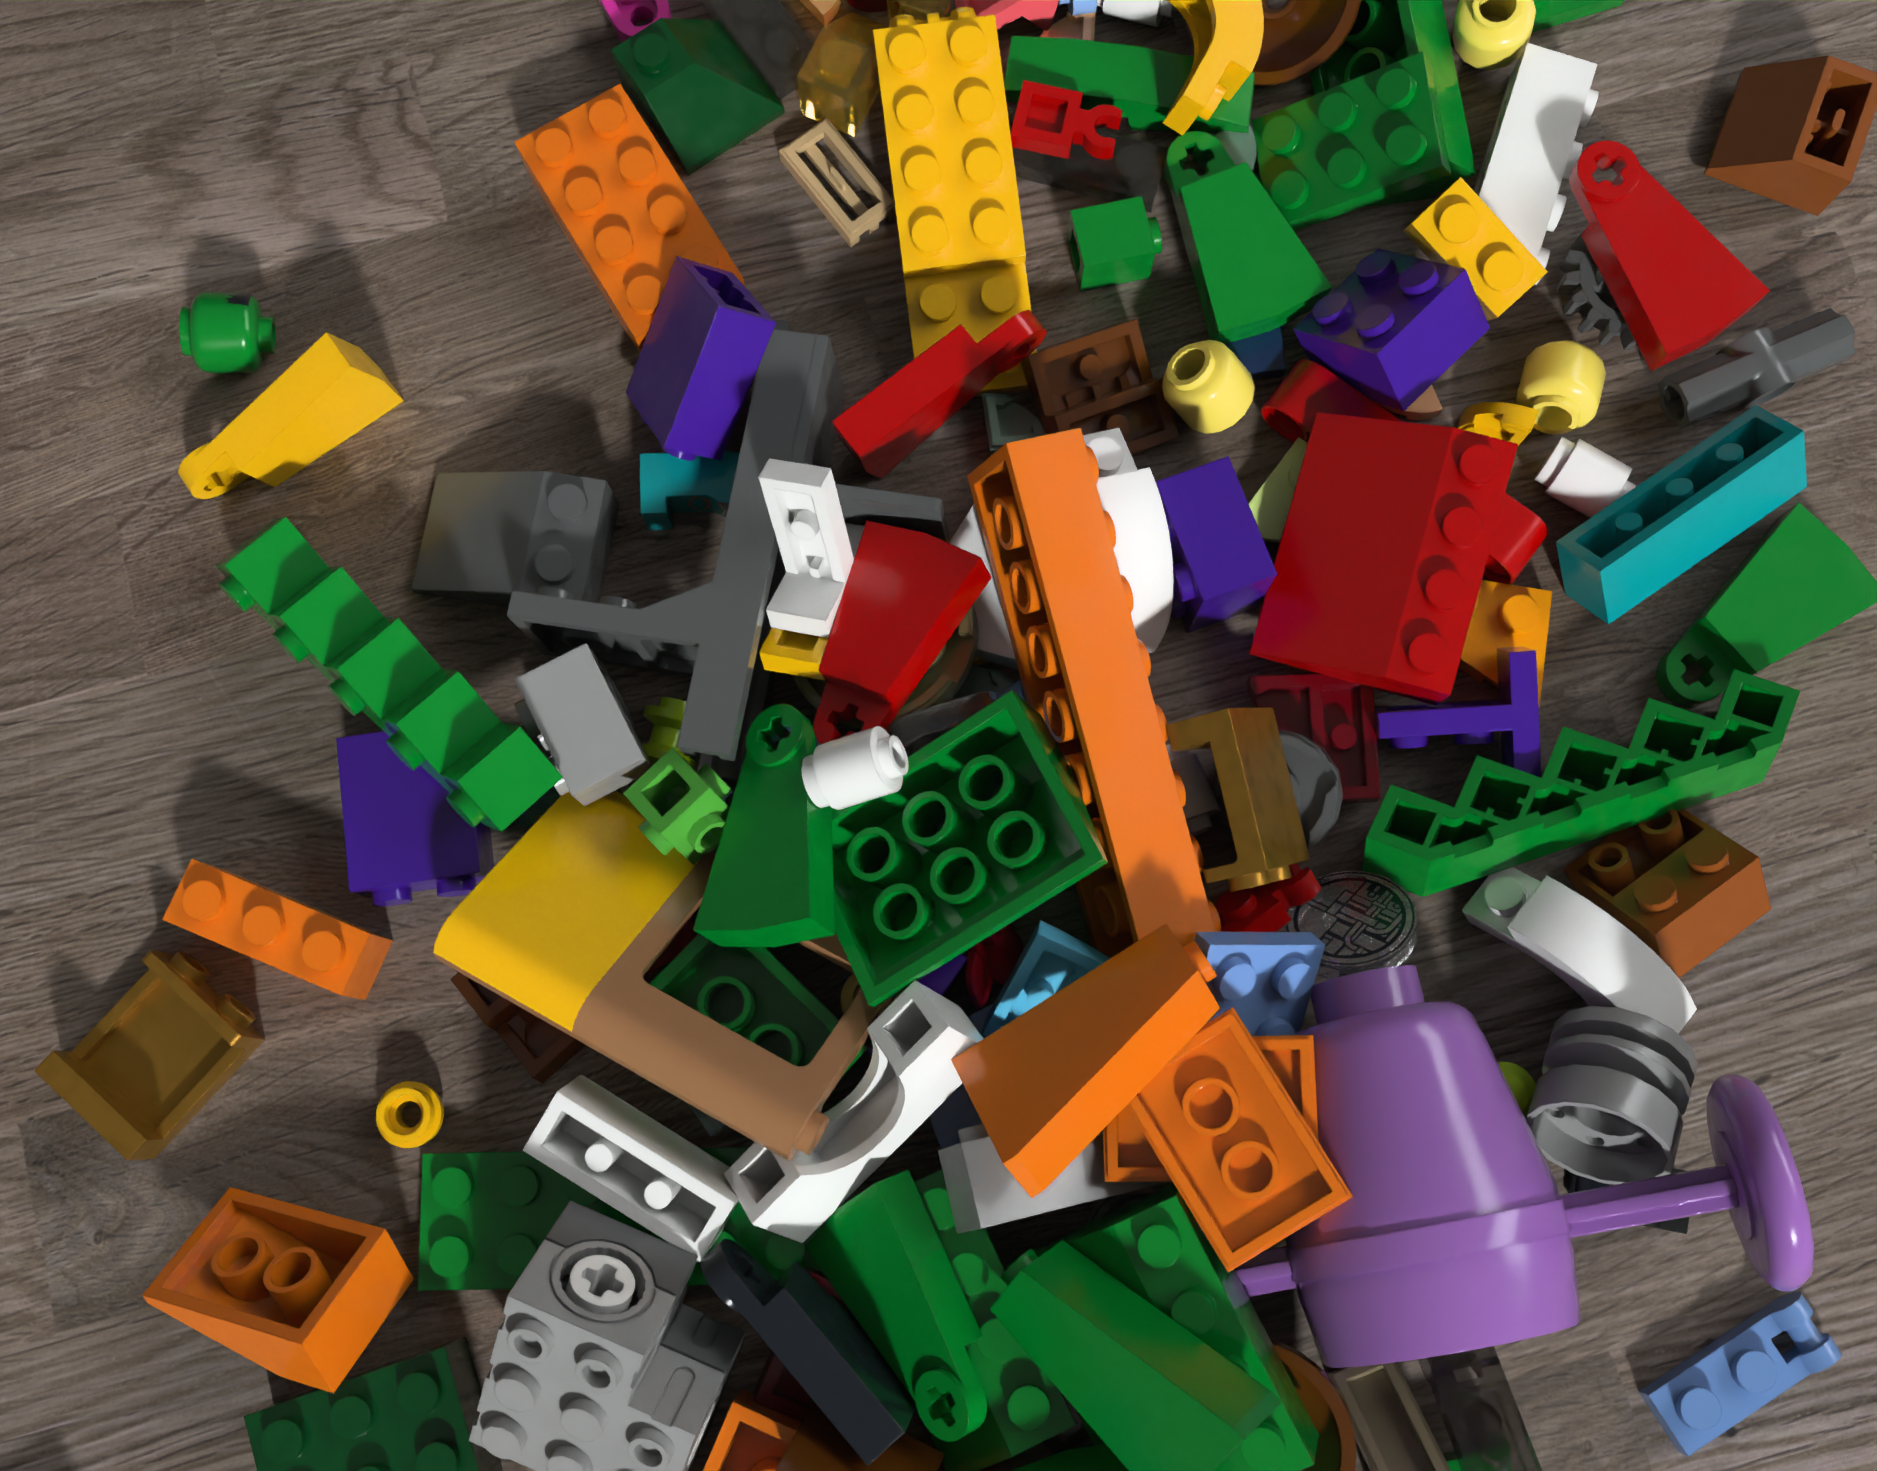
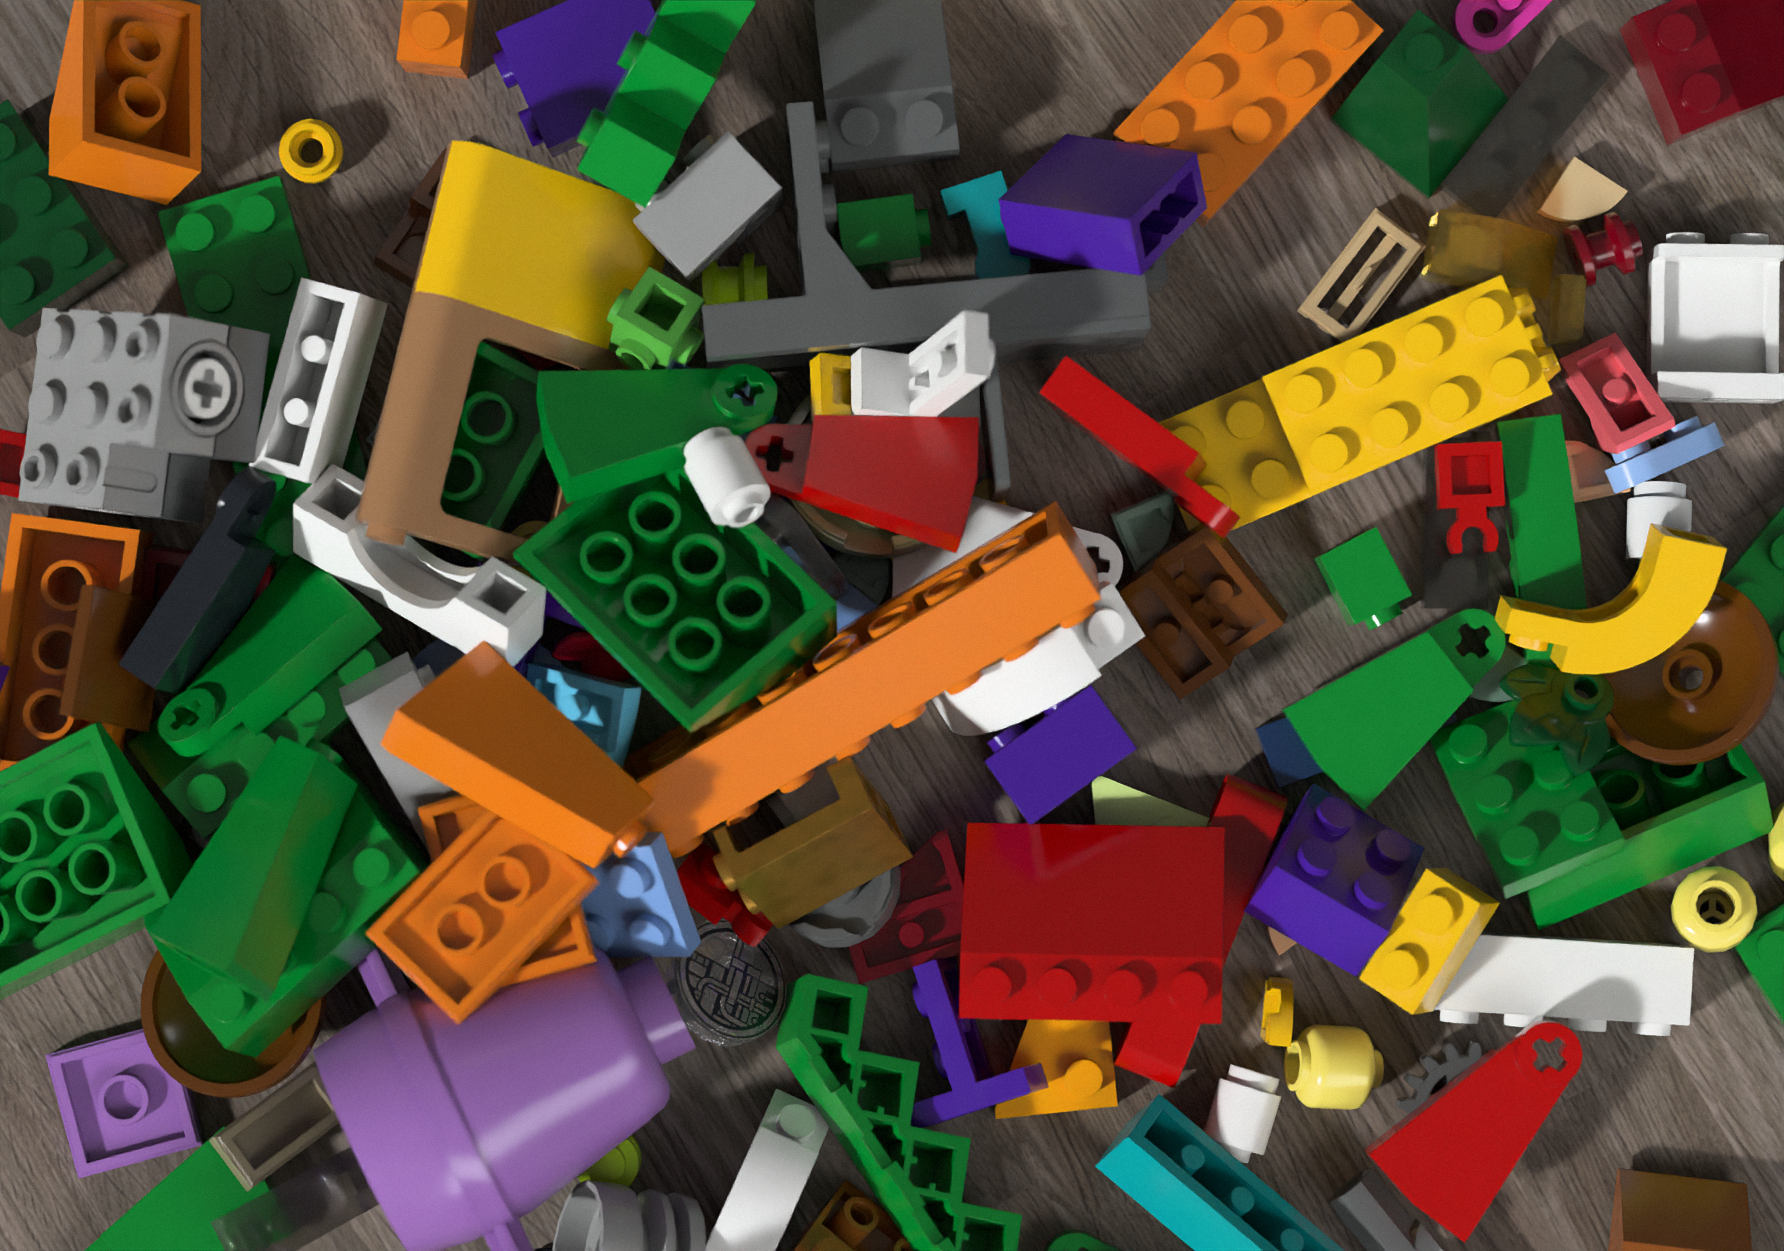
camera: 75 degrees right, 10 degrees up
(663, 569) = (883, 232): none -> green brick
(1208, 386) = (1230, 714): light yellow head -> none
(1284, 95) = (1554, 714): none -> dark green plate

